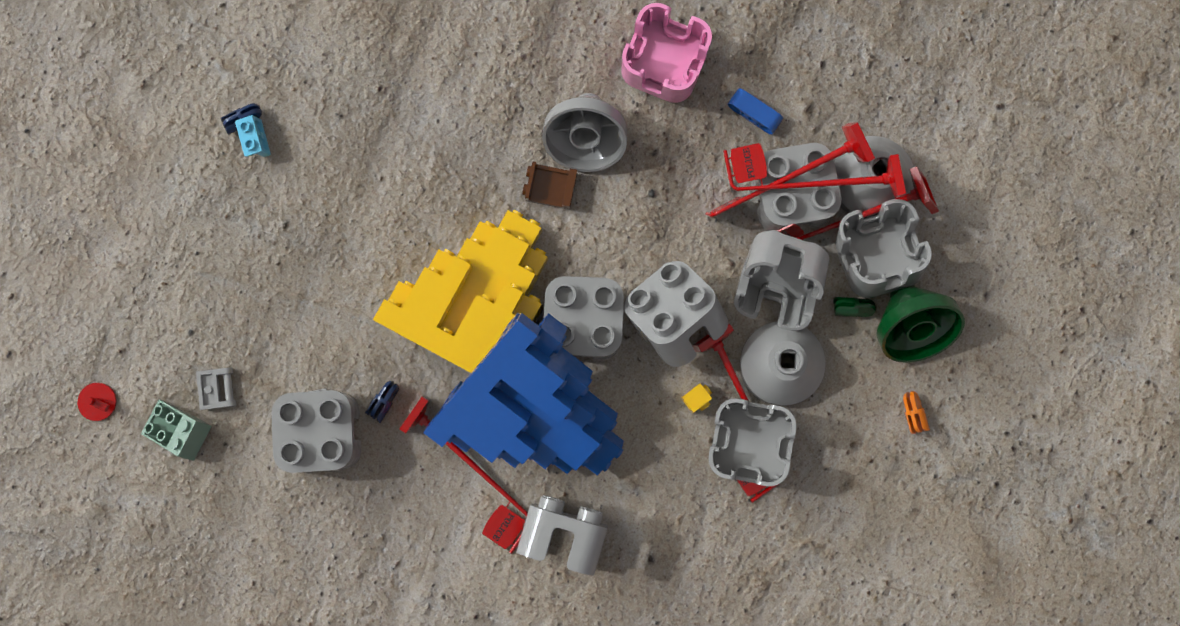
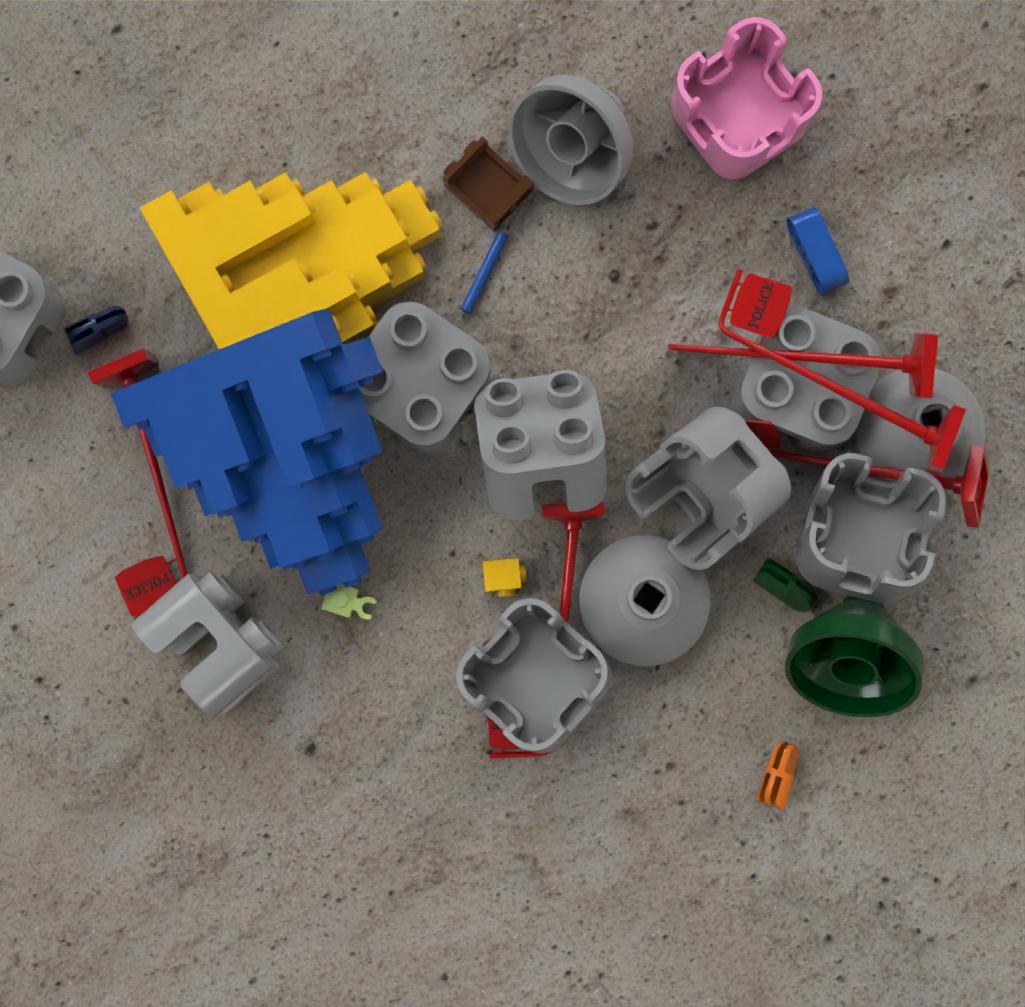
camera: 30 degrees right, 0 degrees up
(579, 236) = (484, 272): none -> blue bar
(618, 466) = (345, 600): none -> yellowish green plate

